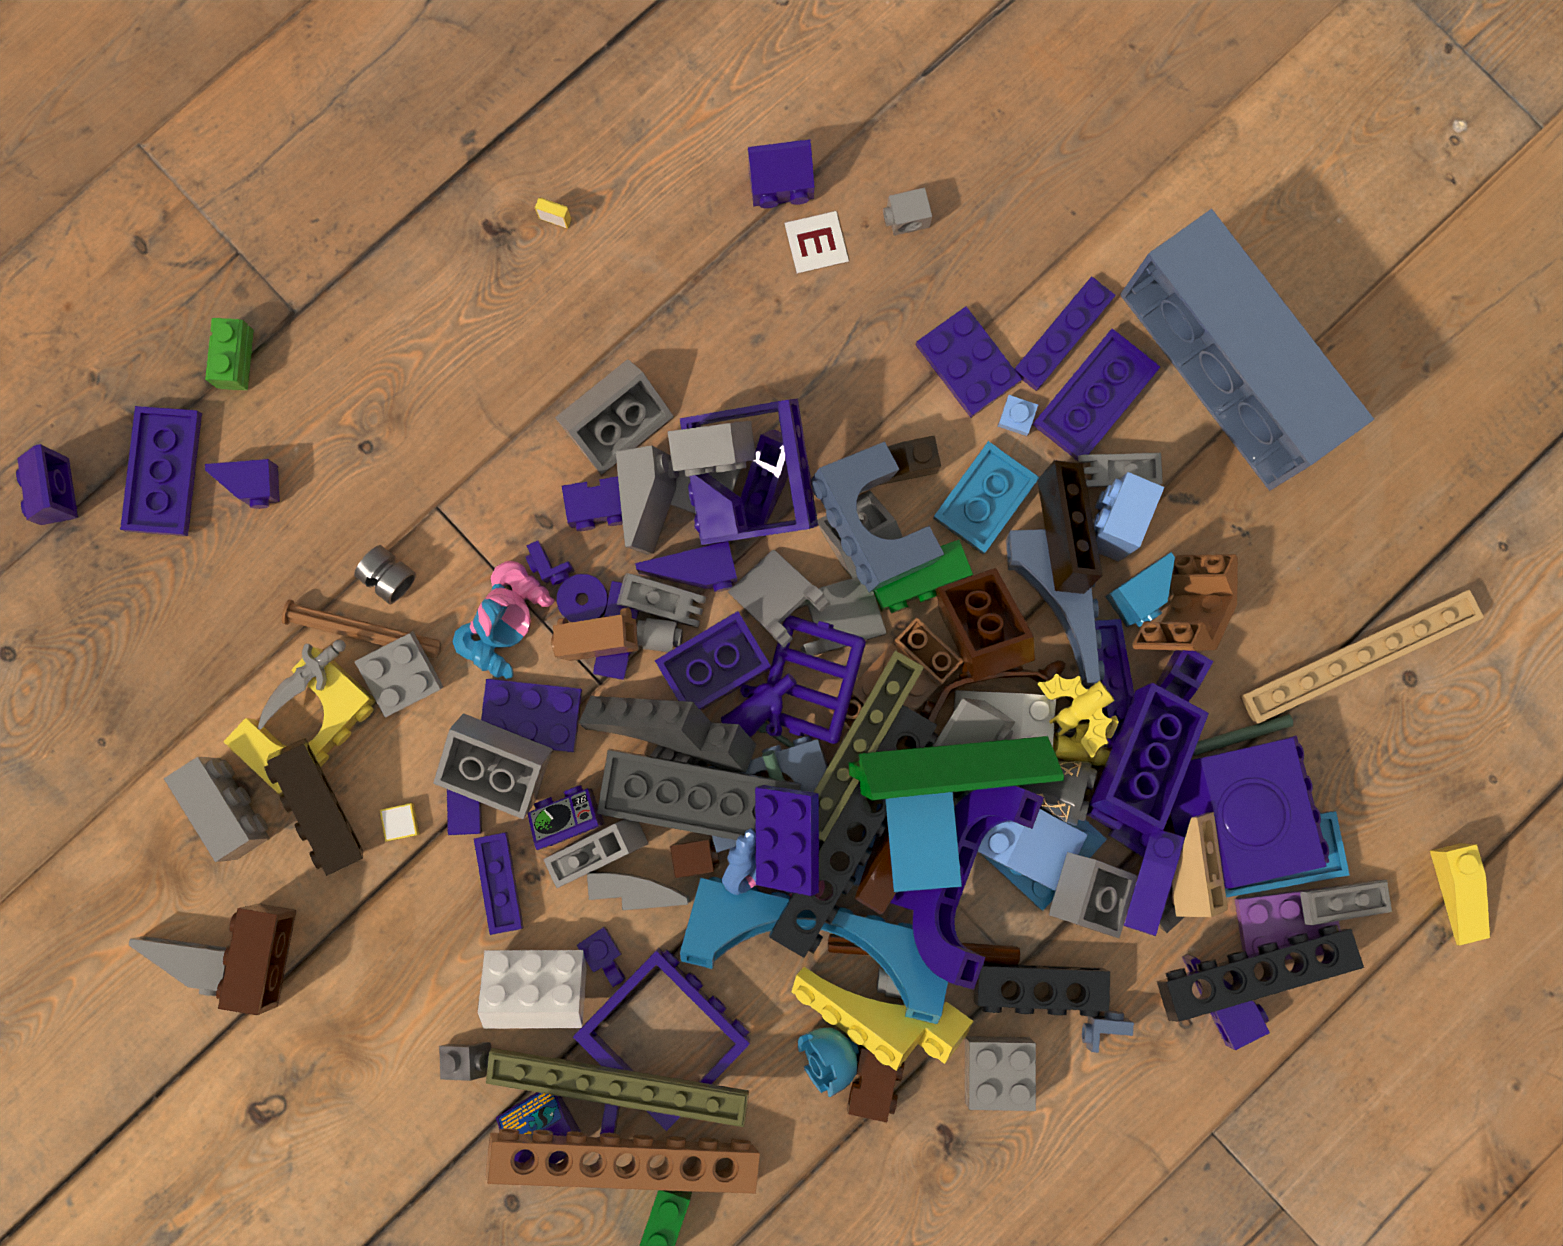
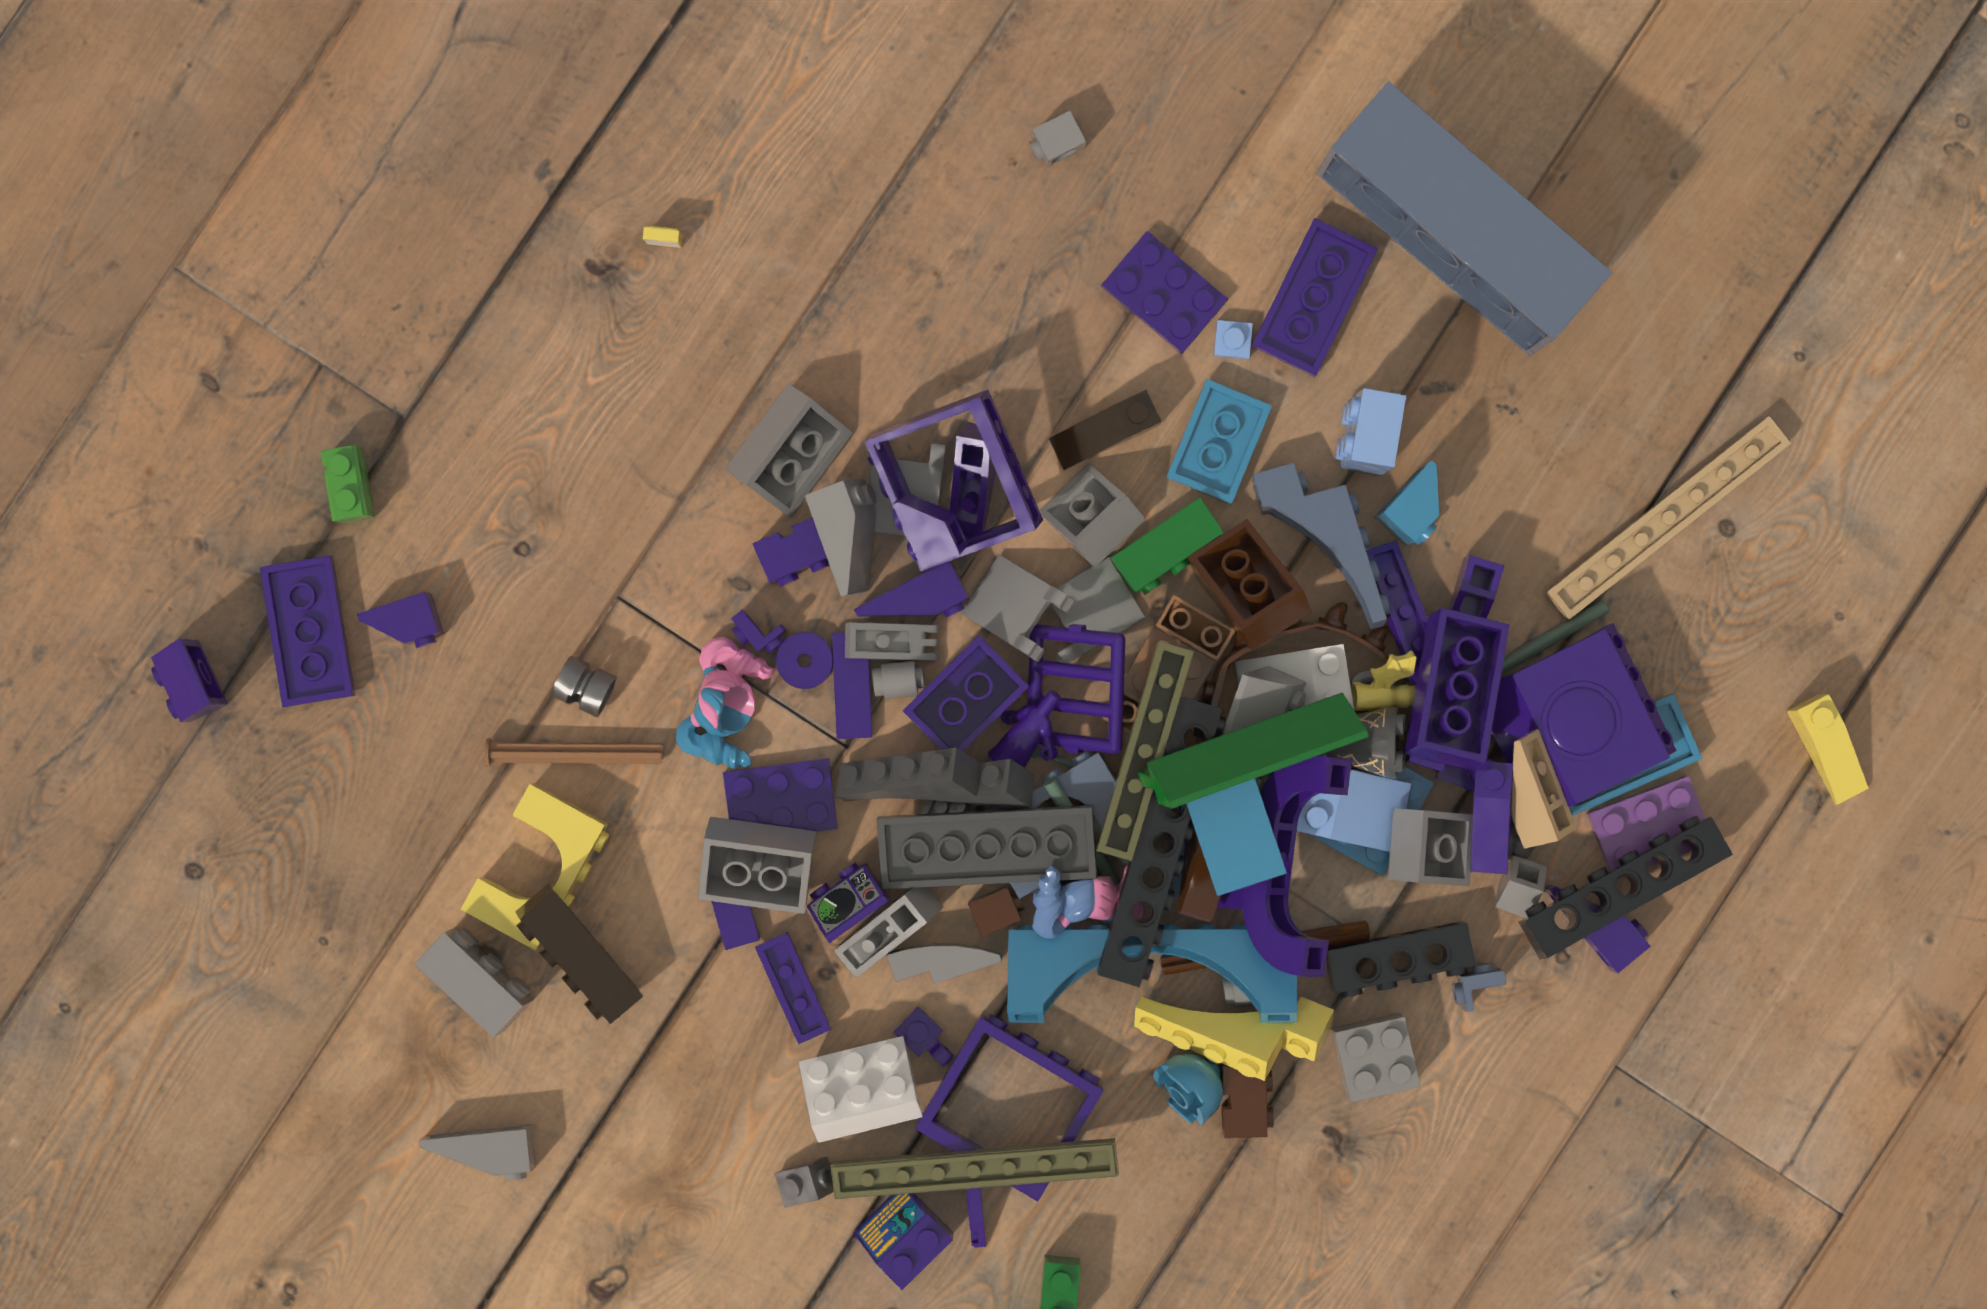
camera: 10 degrees left, 5 degrees up
(256, 959) = (558, 1128): reddish brown brick -> none
(298, 681) = (525, 824): light grey piece -> none
(399, 674) = (627, 790): light grey plate -> none
(399, 822) = (669, 949): white tile -> none
(595, 637) = (830, 699): medium nougat brick -> none
(705, 447) = (910, 469): light grey brick -> none
(737, 1177) = (1125, 1230): medium nougat brick -> none
(781, 173) = (907, 134): dark purple slope -> none
(787, 839) = (1092, 868): dark purple plate -> none
(816, 242) = (963, 195): white sticker -> none
(875, 559) = (1113, 544): sand blue arch -> none
(1064, 333) = (1263, 234): dark purple plate -> none
(1069, 527) = (1315, 457): dark brown brick -> none
(1086, 705) = (1376, 648): light yellow animal -> none
(1108, 467) = (1367, 372): light grey hinge -> none
(1165, 950) = (1520, 886): none -> light grey brick
(1200, 607) = (1477, 511): medium nougat slope -> none
(1345, 902) = (1704, 788): light grey tile -> none

